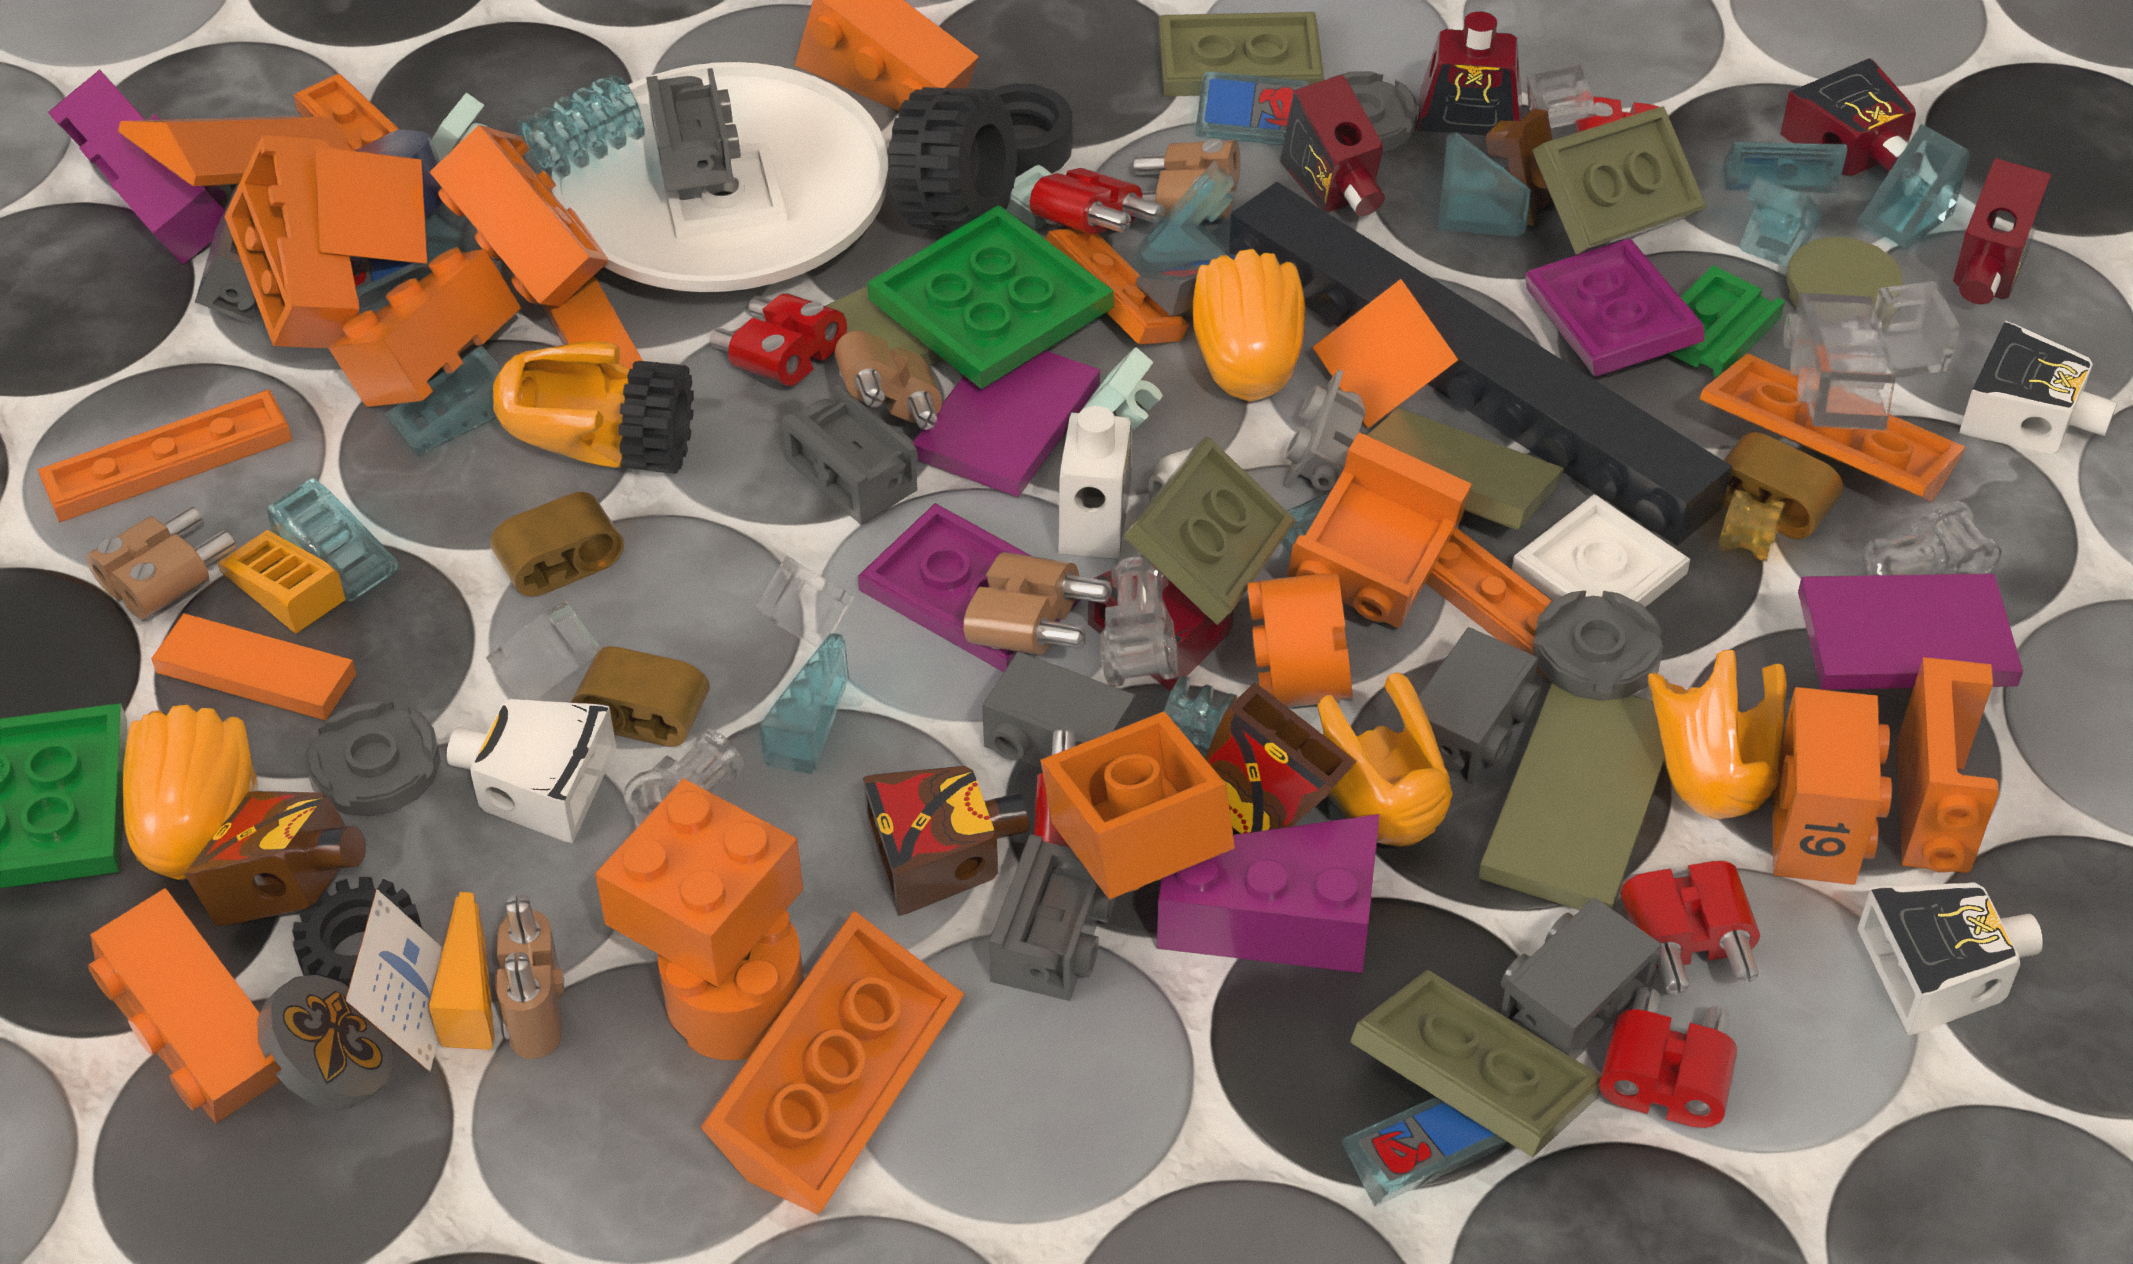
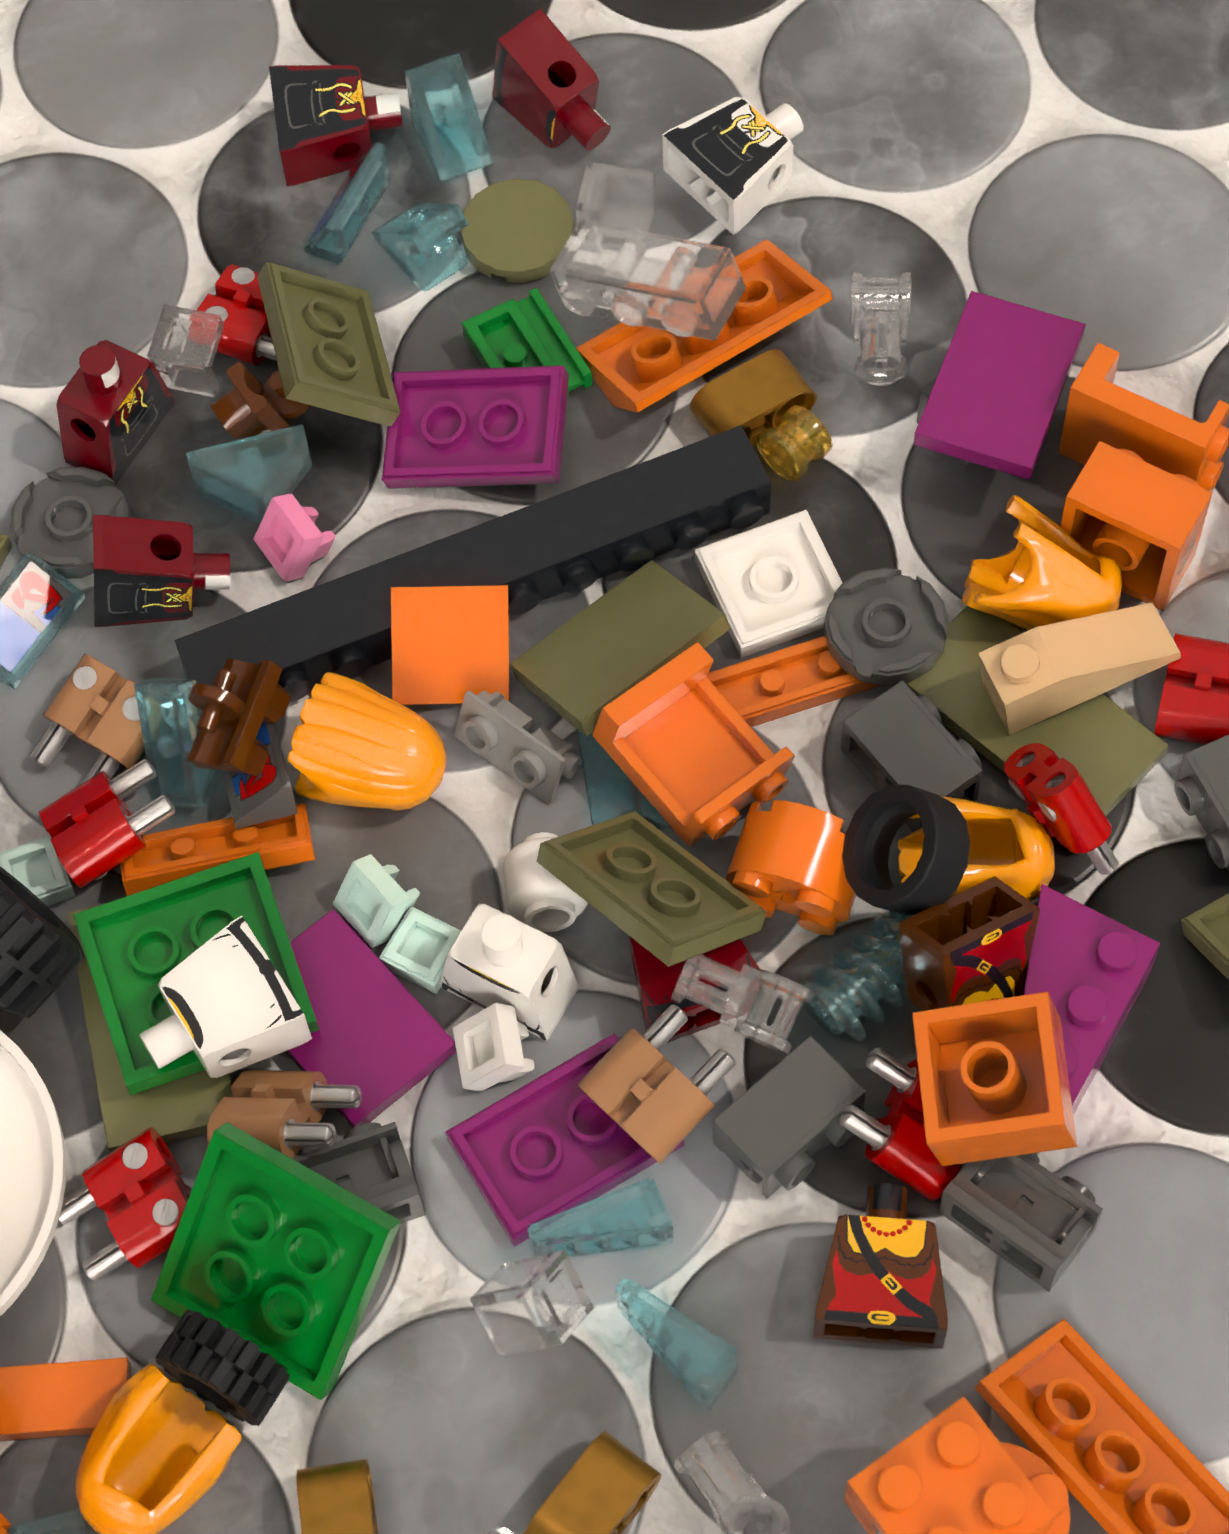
camera: 65 degrees left, 15 degrees up
(756, 410) = (276, 1256): none -> green plate
(899, 626) = (614, 1222): none -> clear light blue slope
(958, 300) = (226, 1006): none -> white torso
(1016, 501) = (491, 1048): none -> white tile
(1195, 232) = (233, 714): none -> reddish brown hips
(1335, 670) = (869, 842): none -> black tyre
(1433, 234) = (291, 537): none -> bright pink tile
(1469, 808) = (1061, 803): none -> red piece
(1637, 776) = (1073, 662): none -> tan slope

